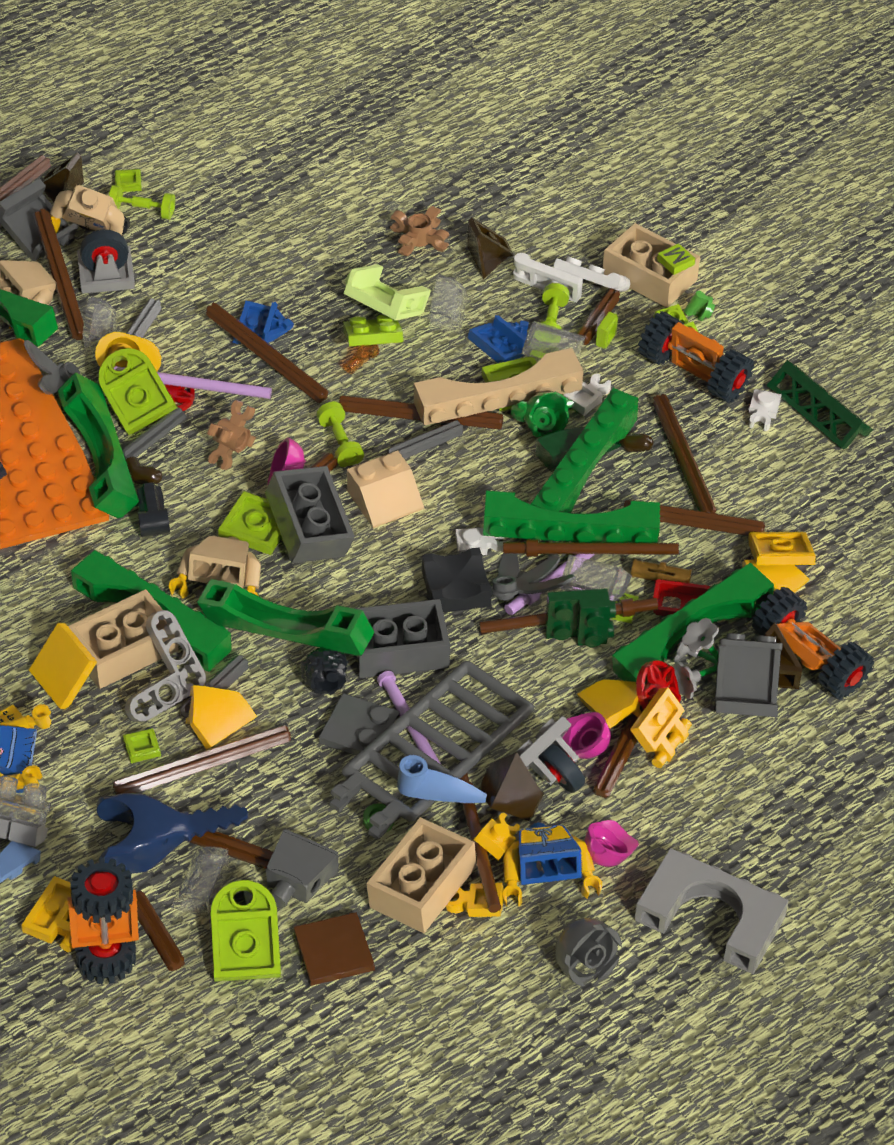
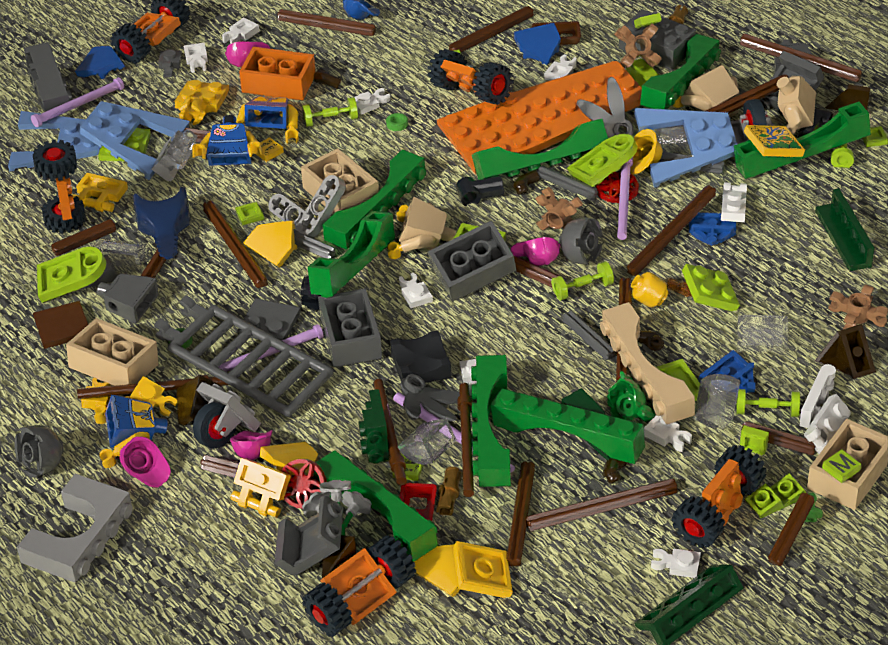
camera: 90 degrees right, 5 degrees down
(62, 665) = (295, 166): yellow tile -> none
(123, 296) = (707, 134): none -> medium blue wing
(149, 222) = (846, 126): none -> green arch
(155, 238) = (774, 141): none -> yellow tile
(228, 297) = (734, 202): none -> white plate
(276, 422) = (581, 237): none -> dark grey cylinder
(294, 225) = (846, 232): none -> dark green fence
(327, 585) = (415, 293): none -> white plate
(365, 286) = (757, 286): yellowish green panel -> none
(378, 374) = (649, 289): none -> yellow head
(384, 489) = (521, 310): tan slope -> none
(423, 783) = (194, 348): medium blue piece -> none
(734, 317) = (791, 529): none -> reddish brown axle

